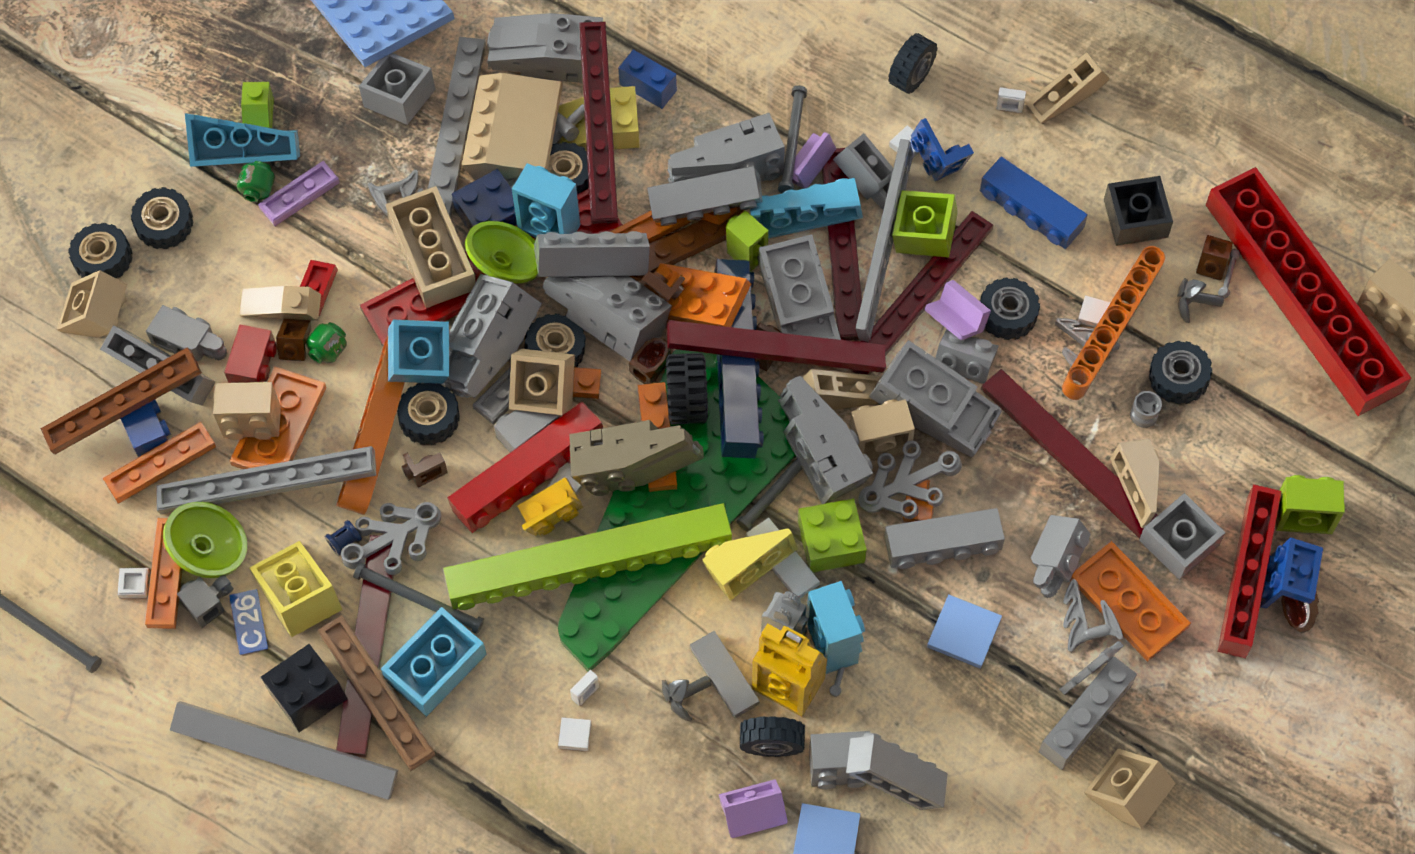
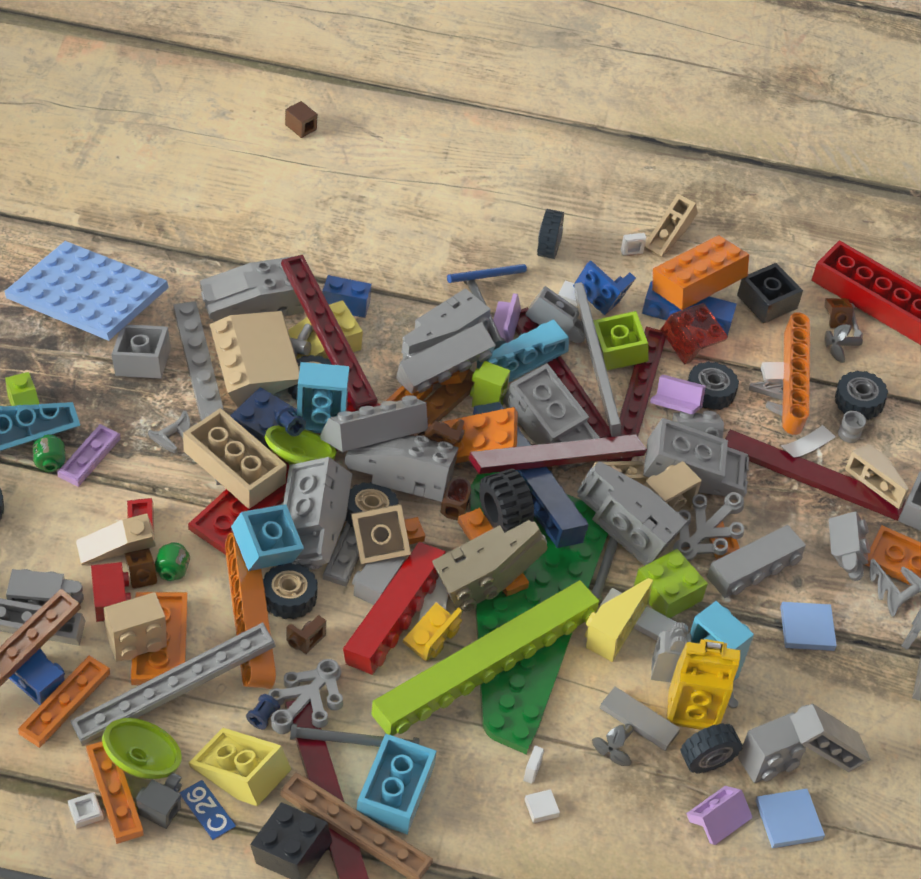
camera: 30 degrees left, 15 degrees down
(502, 222) = (287, 418): none -> dark blue bush
(817, 92) = (486, 273): none -> blue bar
(1019, 235) = (691, 331): none -> clear red bracket
(1056, 165) = (700, 272): none -> orange brick
(1086, 412) = (809, 442): none -> white sticker

